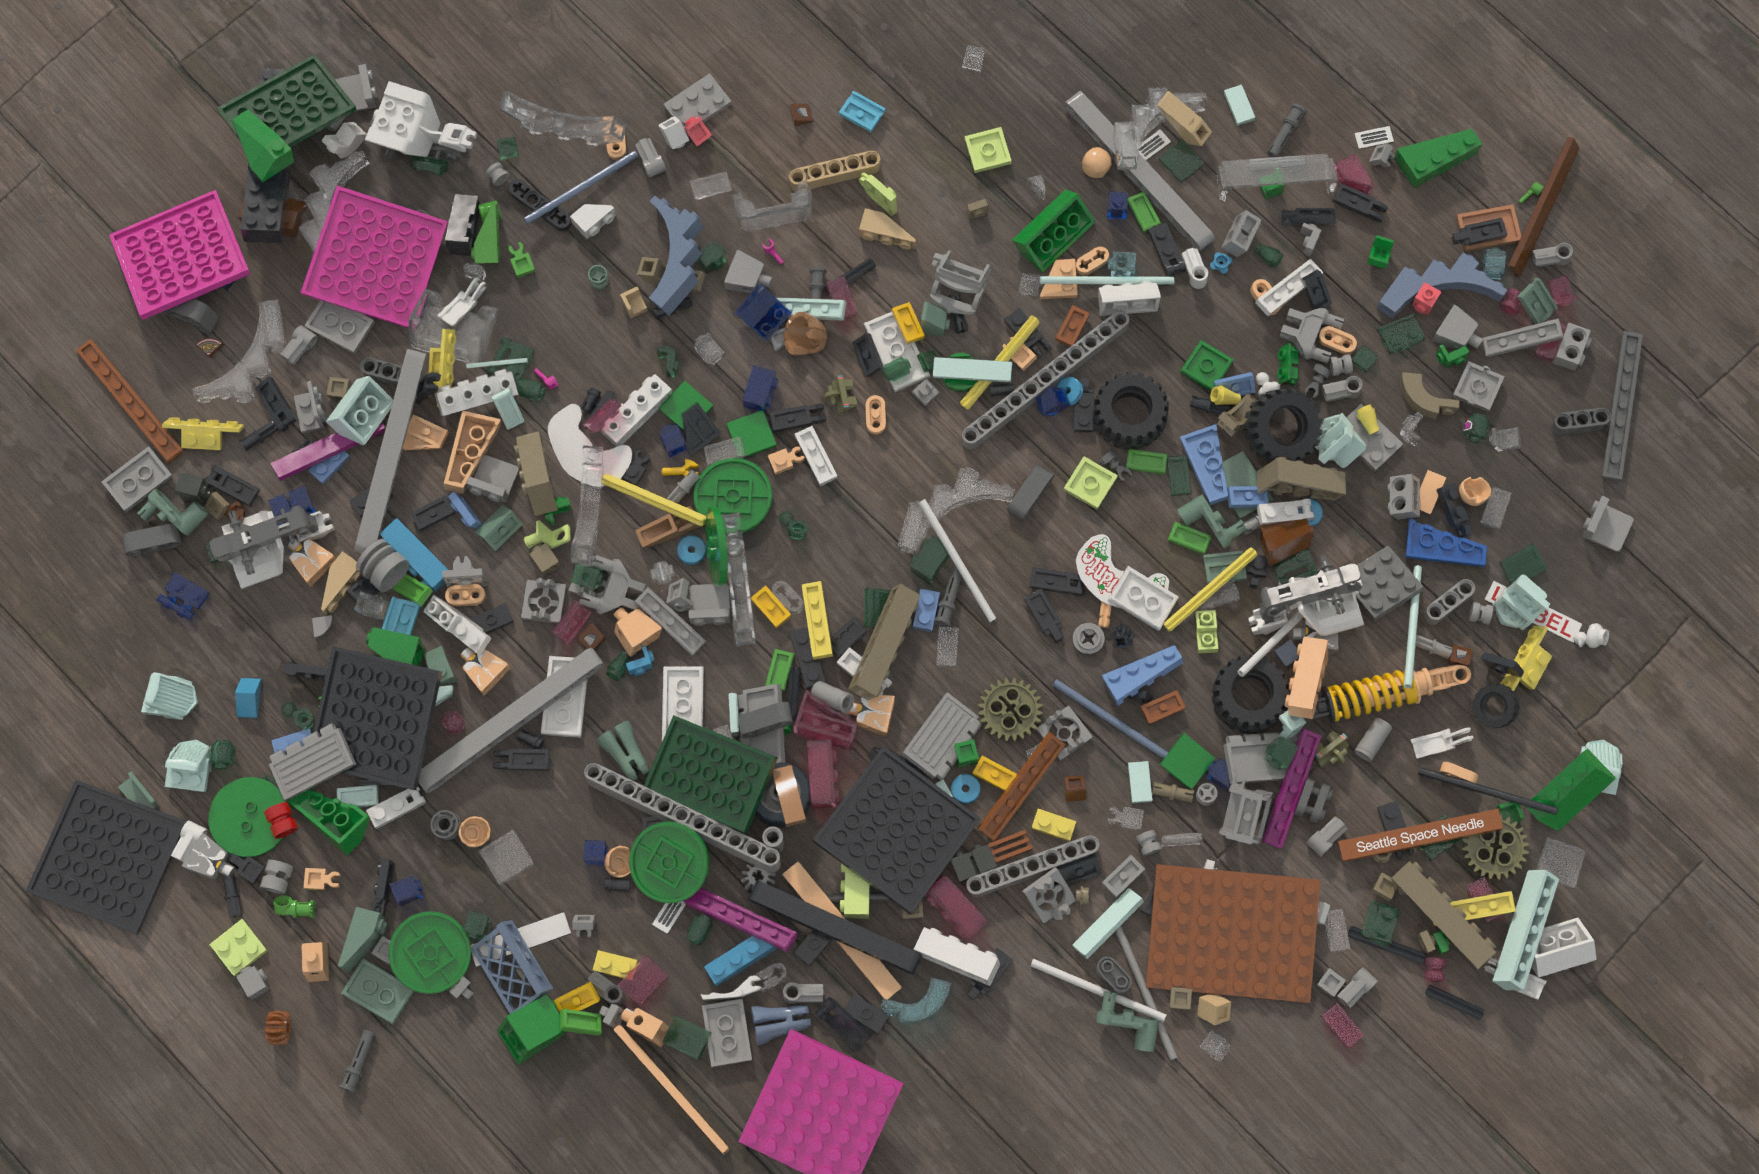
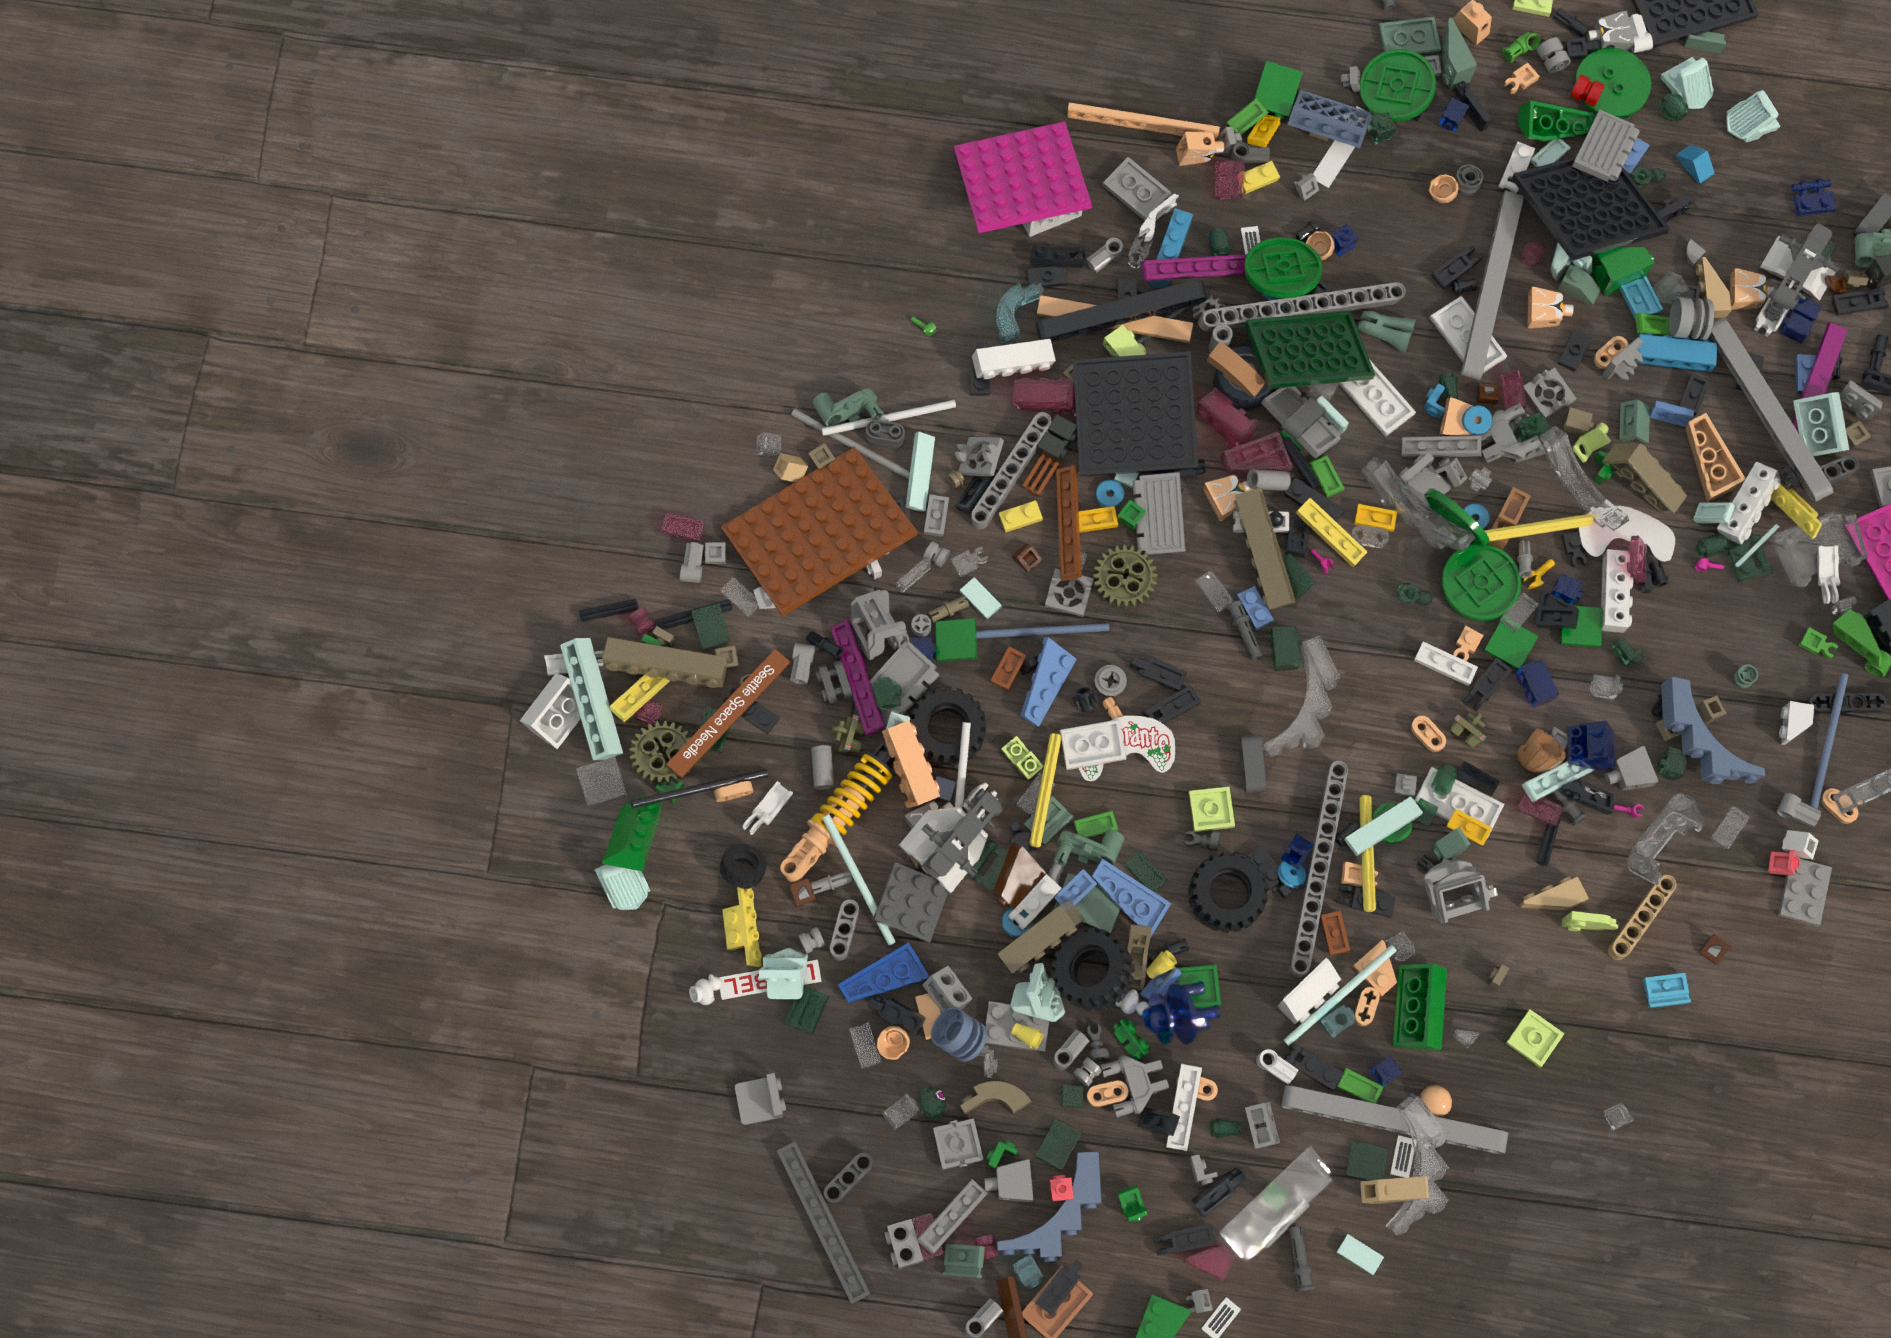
camera: 135 degrees right, 0 degrees up
(424, 435) = (1757, 448): light nougat wing -> none
(457, 624) = (1598, 326): white slope -> none
(493, 479) = (1674, 451): light grey bracket -> none
(506, 857) = (1404, 192): clear tile -> none
(626, 622) = (1468, 420): none -> dark azure piece
(633, 302) = (1699, 676): tan panel -> none
(687, 1037) = (1162, 163): clear green plate -> none
(768, 1032) = (1121, 219): sand blue piece -> none
(796, 278) = (1589, 796): none -> black hinge
(842, 605) = (1327, 562): none -> dark pink hand
(849, 663) = (1276, 522): none -> black hinge
(957, 560) = (1264, 657): white piece -> none
(1002, 1044) = (928, 329): none -> bright green hand
(1146, 461) = (1181, 864): bright green tile -> none
(1220, 257) = (1255, 1095): dark azure plate -> none
(1240, 341) = (1178, 1013): none -> clear blue piece
(1297, 836) = (825, 644): none -> black axle
(1422, 455) = (958, 1034): none -> sand blue wheel
(1502, 665) = (762, 902): black plate -> none
(1561, 291) = (950, 1290): clear pink bracket -> none

